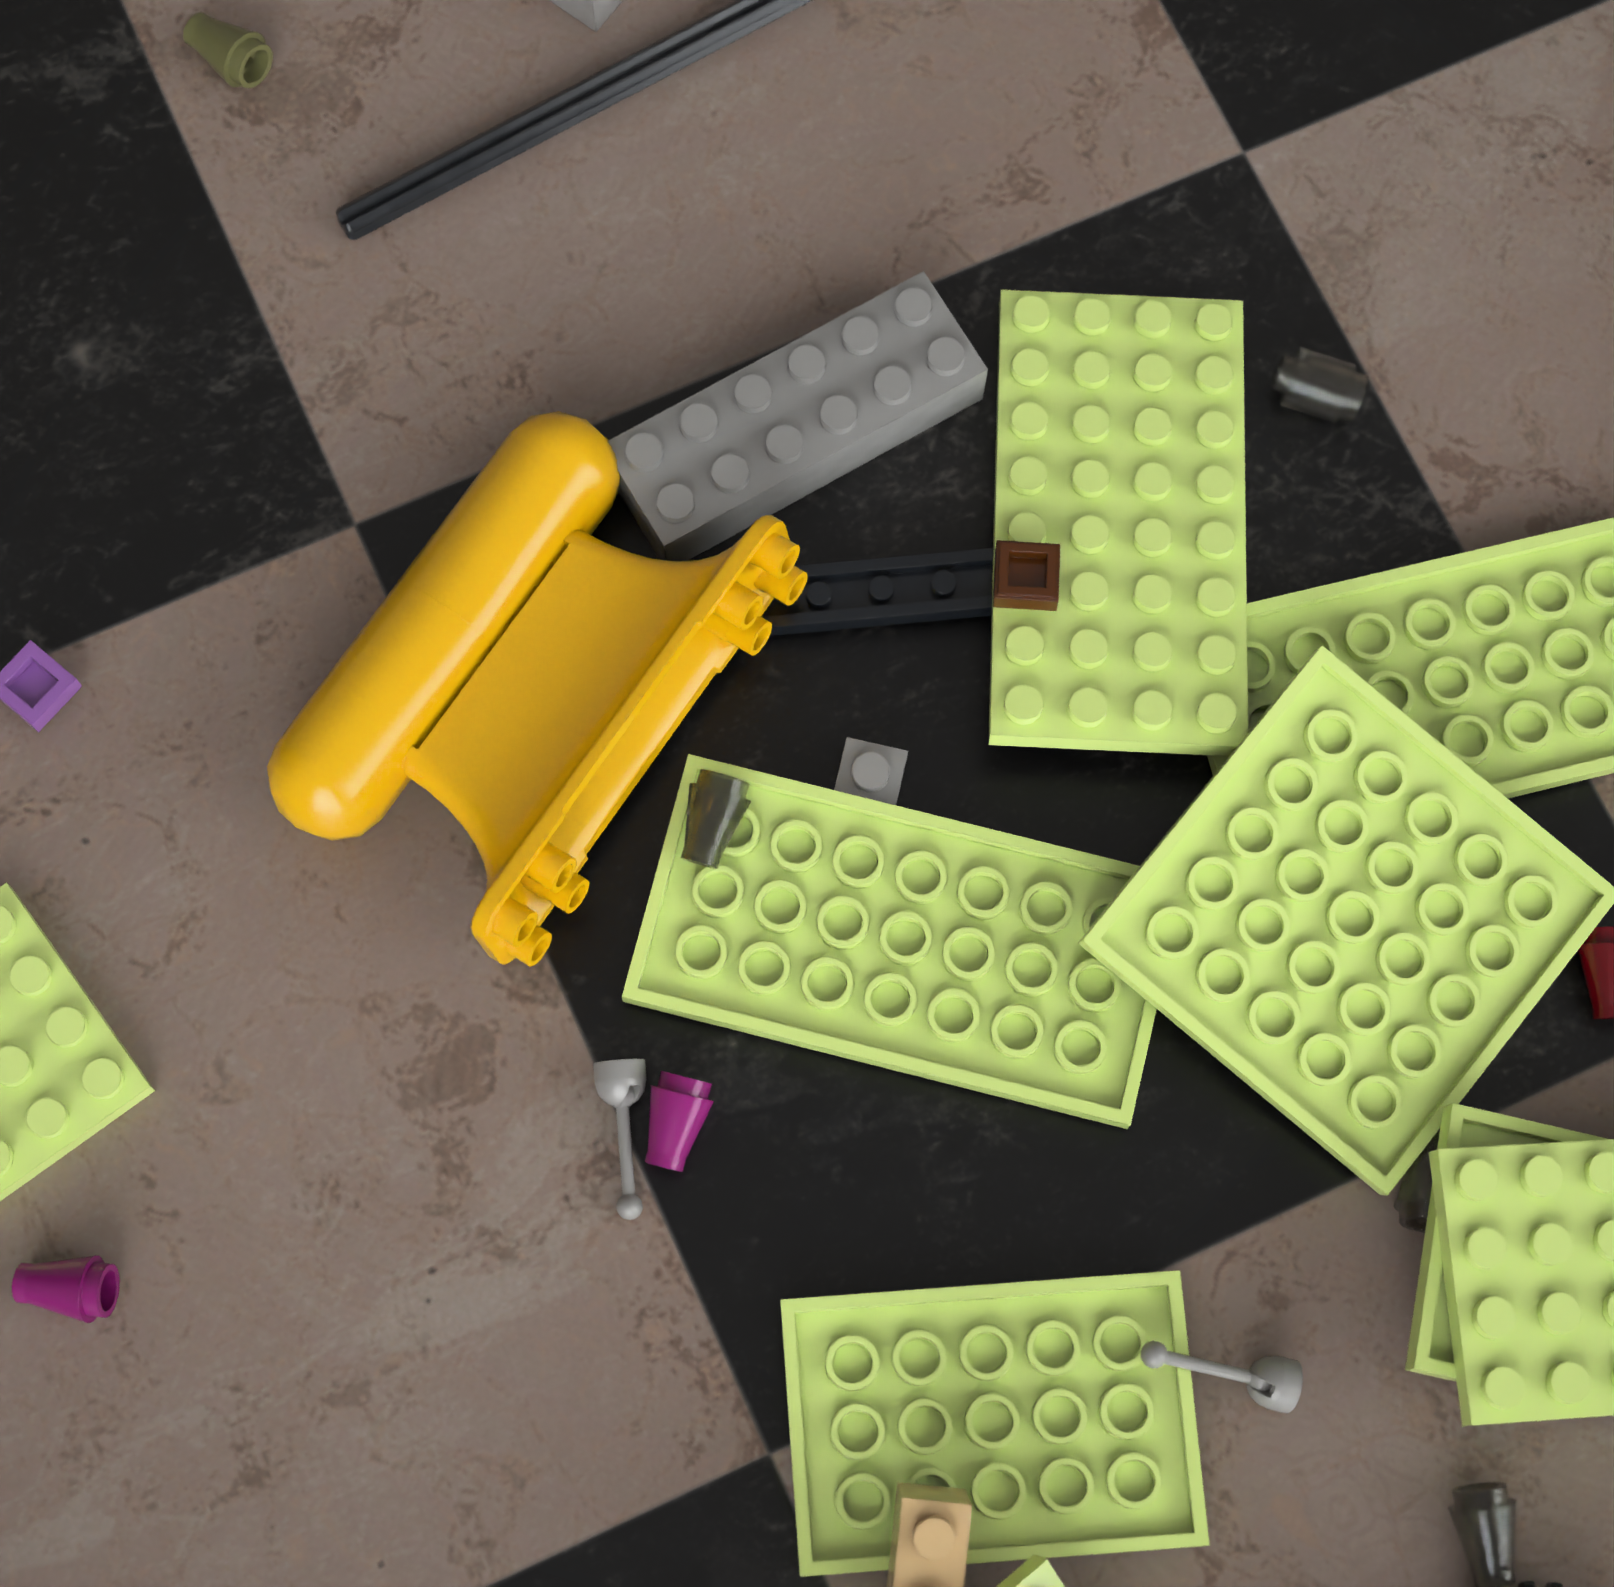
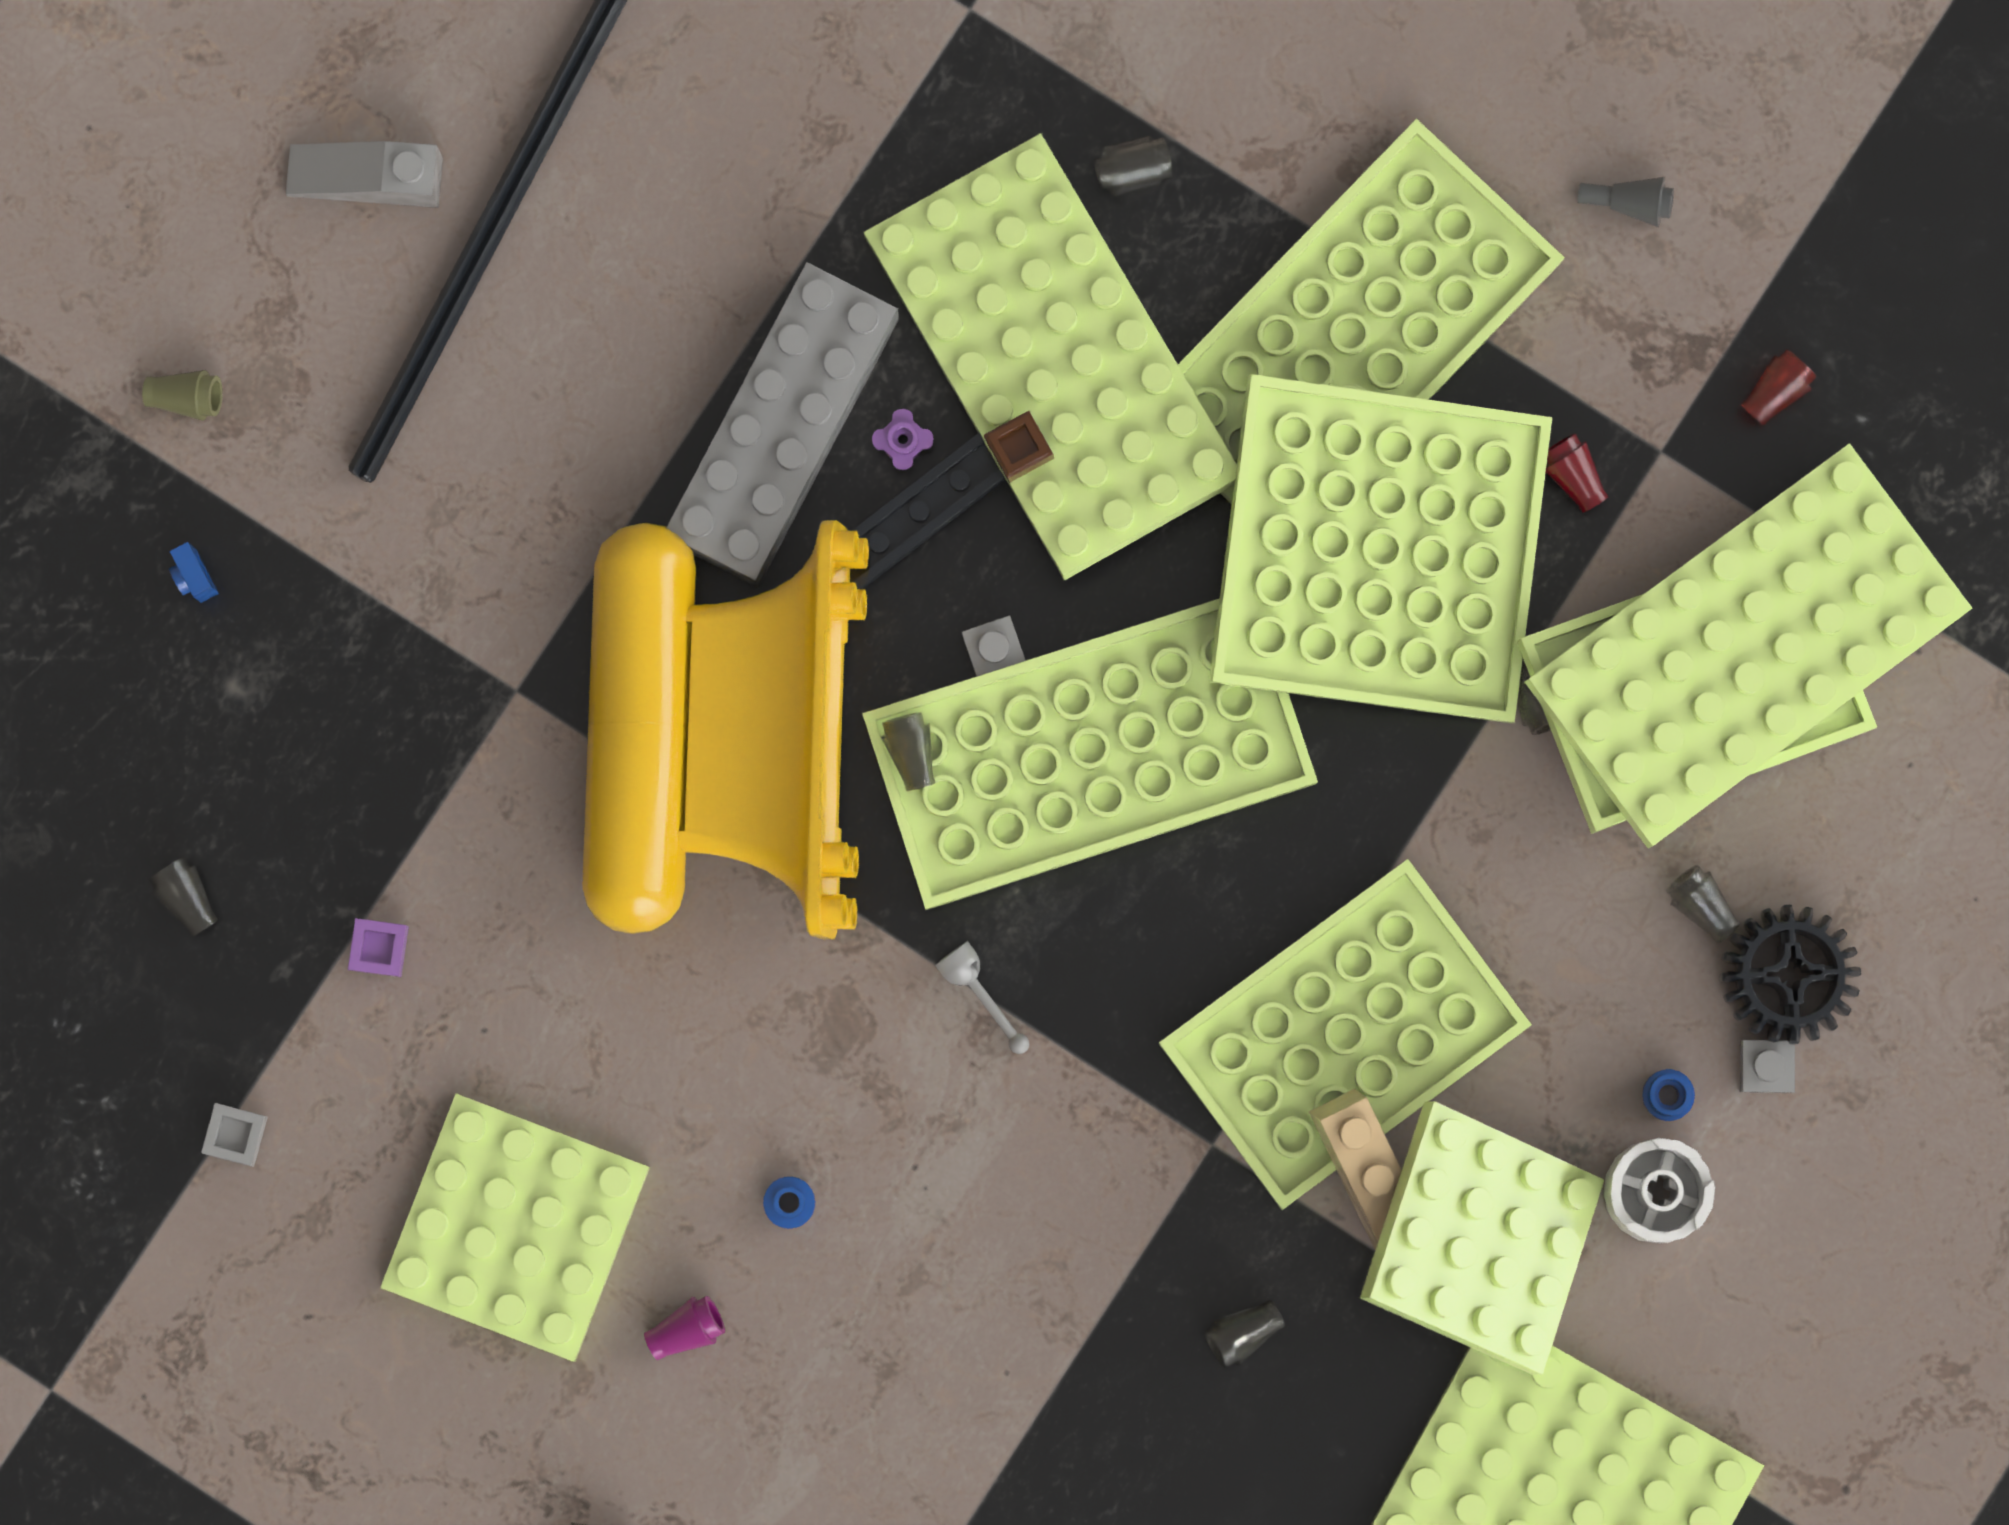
camera: 30 degrees left, 10 degrees up
(114, 214) = (191, 573): none -> blue plate
(285, 1235) = (801, 1214): none -> blue plate
(675, 1118) = (1013, 966): magenta cone -> none
(906, 528) = (902, 454): none -> medium lavender plate
(1270, 1381) = (1509, 894): light grey hinge -> none

